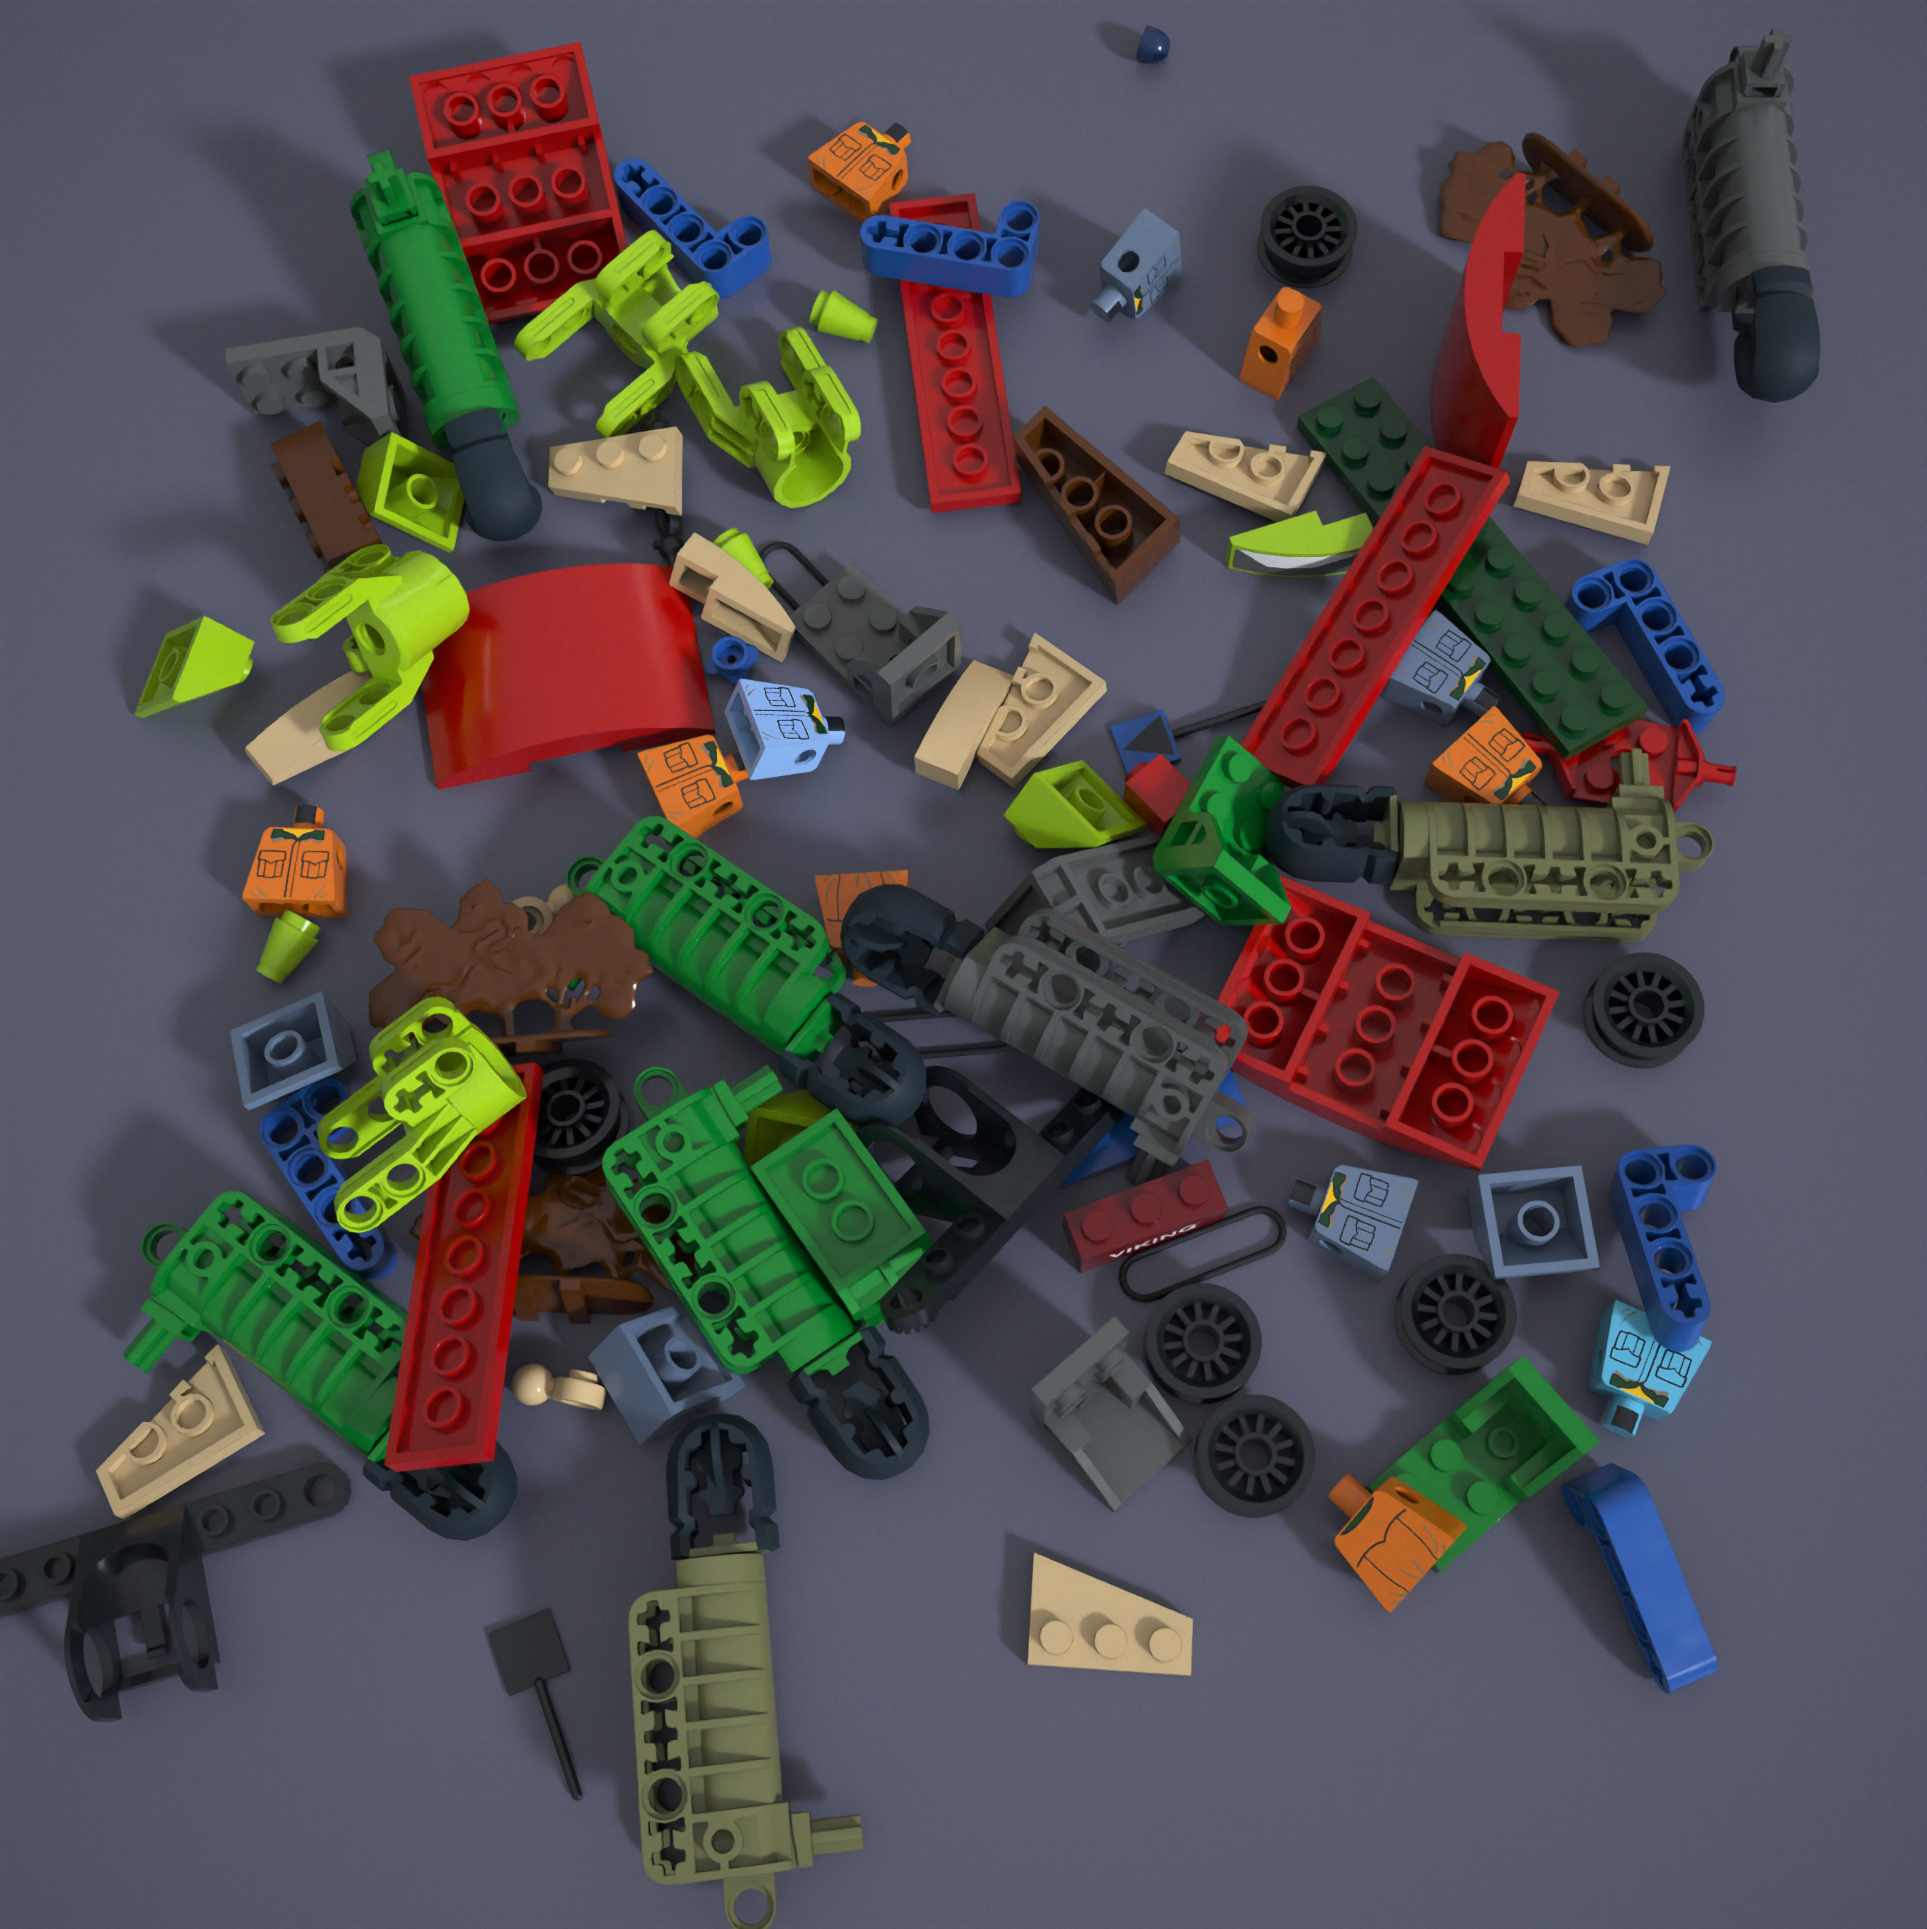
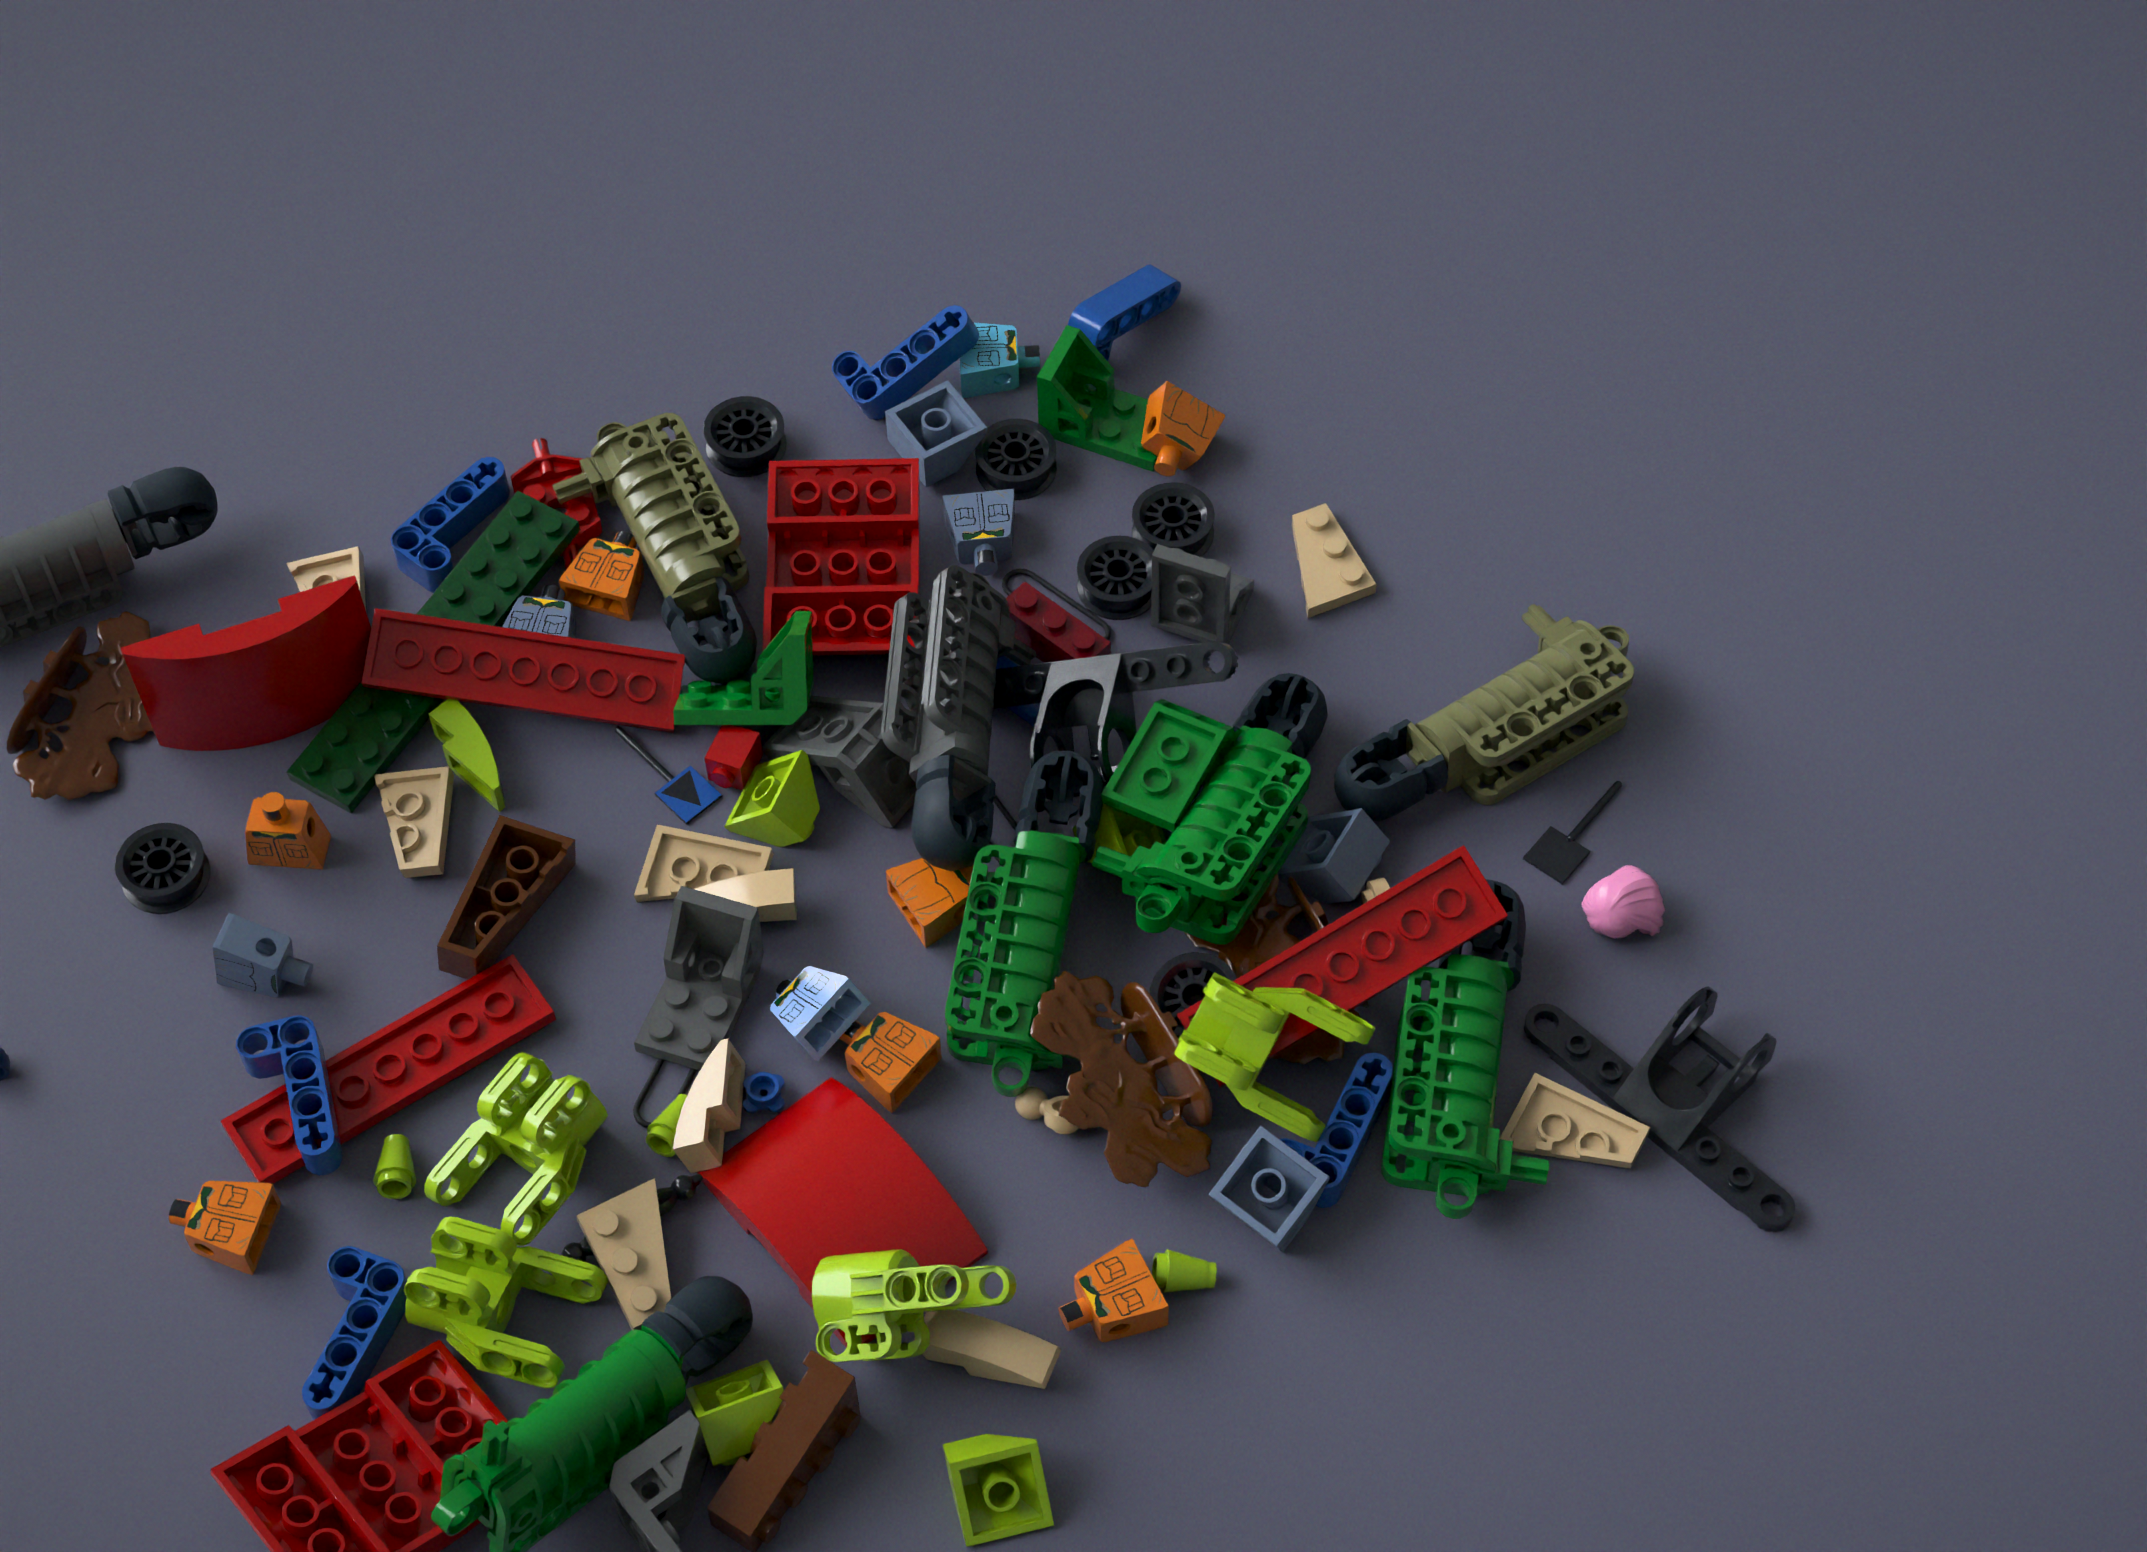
camera: 120 degrees left, 15 degrees down
(398, 1675) = (1624, 903): none -> bright pink hair

